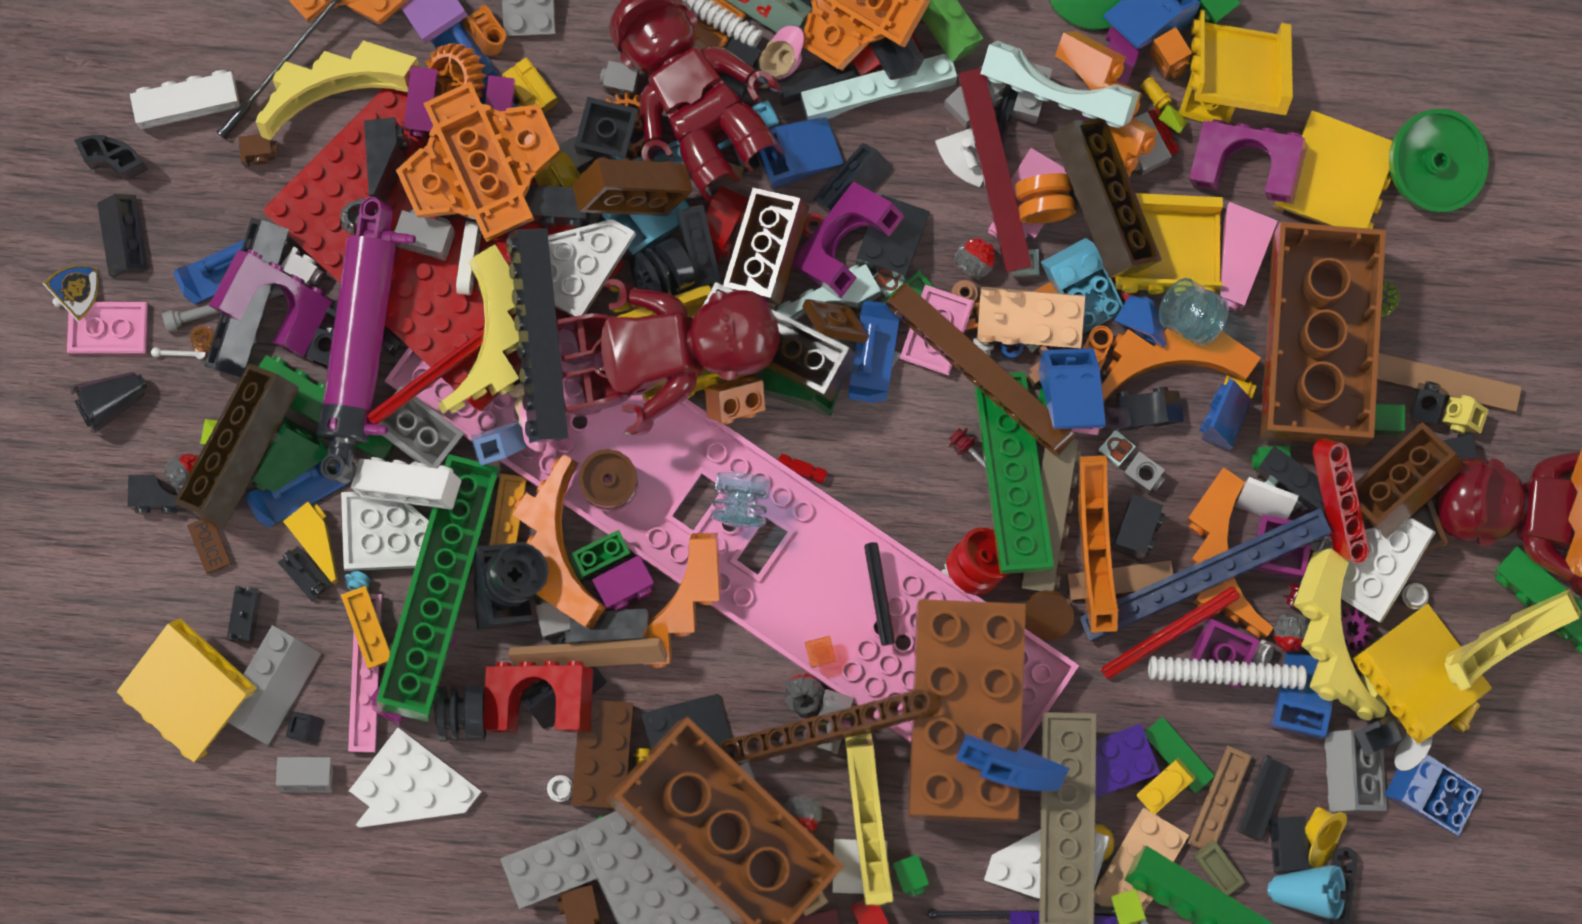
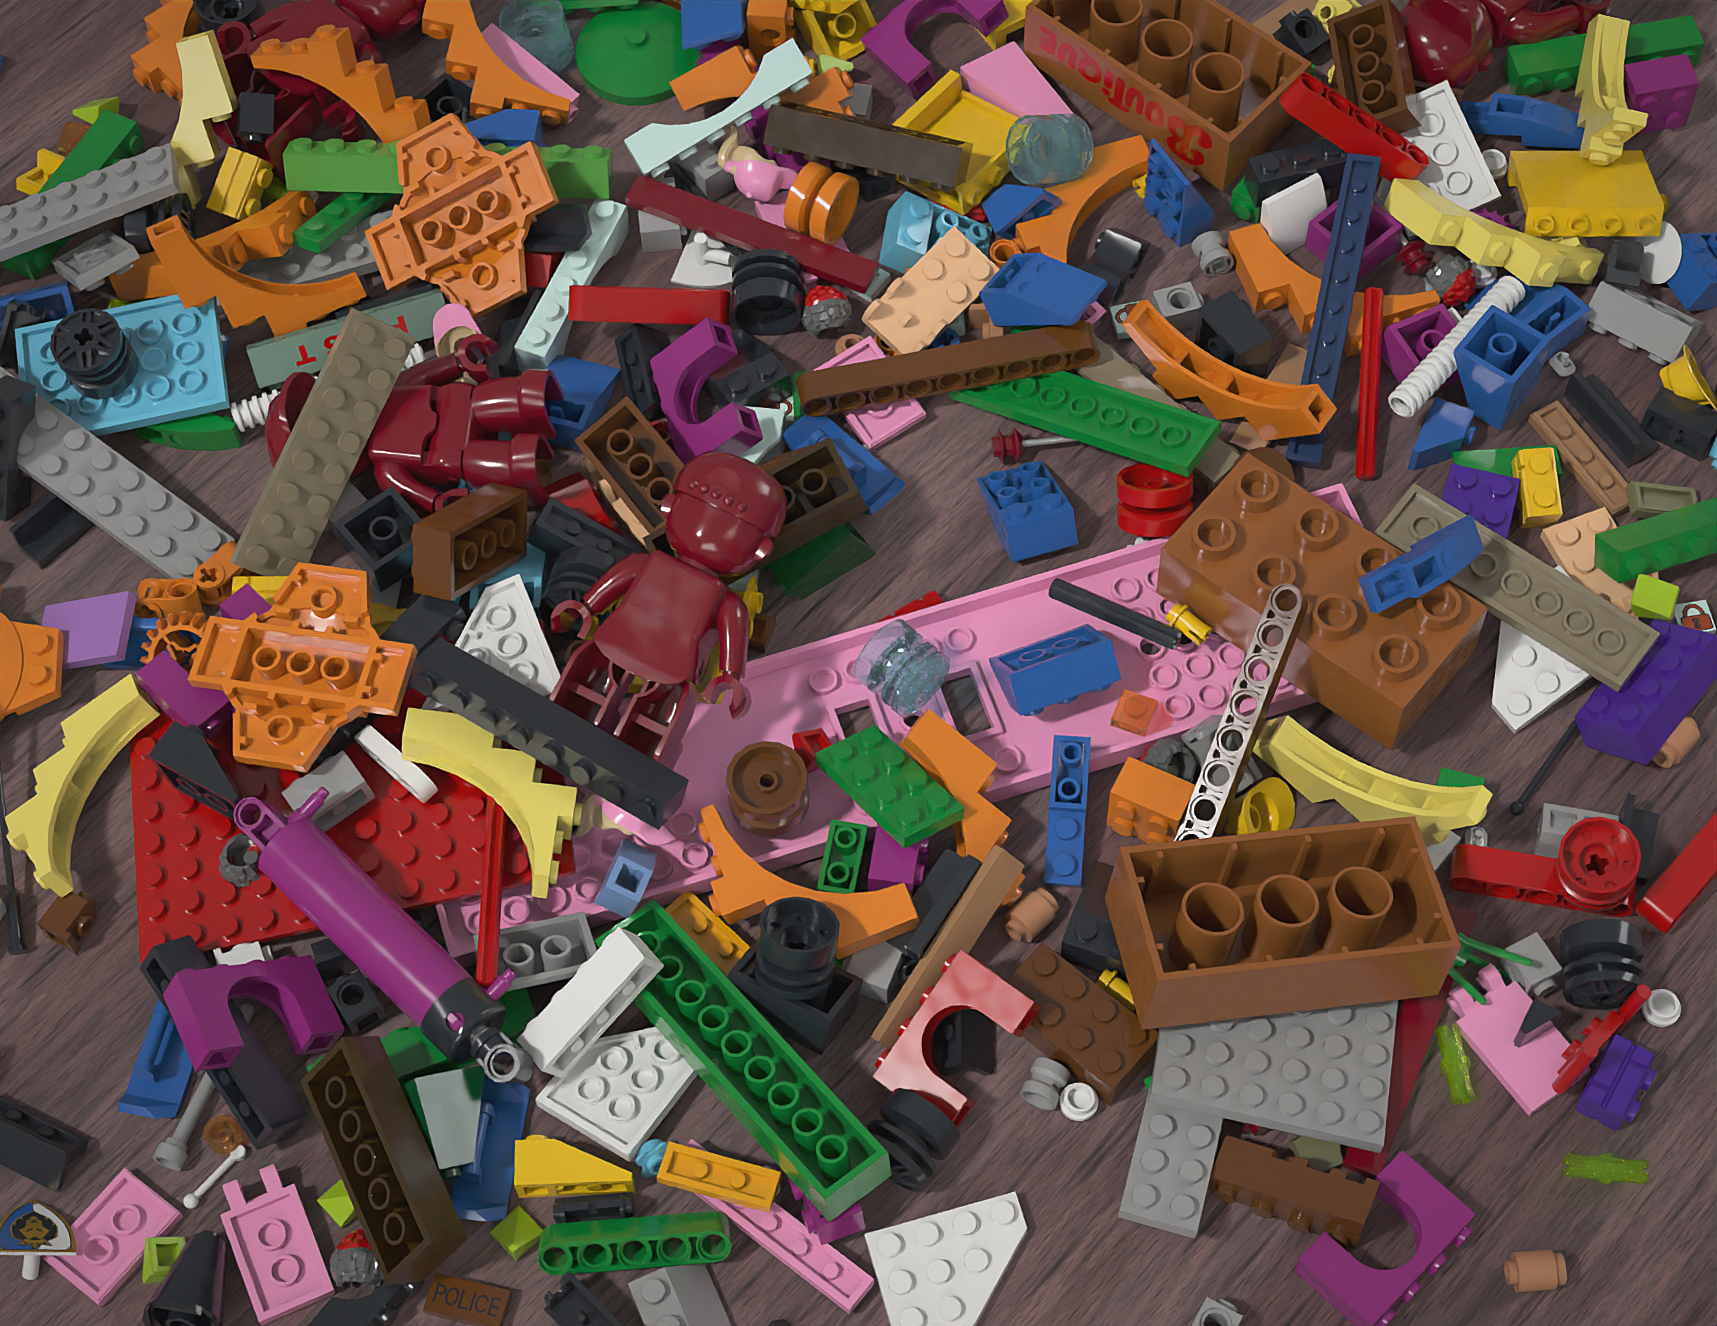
camera: 50 degrees left, 20 degrees down
(115, 364) = (159, 1257): none -> lime slope
(163, 418) = (275, 1248): none -> bright pink tile
(265, 540) = (517, 1233): none -> lime slope
(301, 609) = (649, 1230): none -> green beam
(534, 46) = (218, 574): none -> orange piece
(555, 763) = (1045, 1081): none -> light grey wheel
(629, 49) = (323, 446): none -> dark tan plate
(653, 681) = (1030, 915): none -> nougat brick
(659, 484) = (808, 743): none -> red slope
(660, 548) = (889, 786): none -> green plate
(728, 658) = (1067, 811): none -> blue slope
(734, 396) = (784, 614): orange brick -> none
(767, 701) = (1148, 802): none -> orange brick
(812, 585) = (1056, 669): none -> blue slope
(814, 770) = (1262, 809): none -> yellow piece
(891, 907) = (1476, 836): none -> white rock
(893, 149) = (647, 304): none -> red beam
(903, 642) = (1188, 623): none -> yellow pin
(925, 486) = (1028, 511): none -> blue slope
(954, 216) = (766, 292): none -> black wheel
(1038, 137) = (752, 173): none -> bright pink hair
(1168, 701) = (1443, 433): none -> blue slope
(1204, 466) = (1211, 251): none -> light grey wheel
(1234, 706) = (1499, 365): none -> blue slope
(1285, 741) = (1562, 364): none -> white rock
(1462, 591) = (1532, 119): none -> blue slope
(1545, 669) = (1662, 90): none -> magenta brick

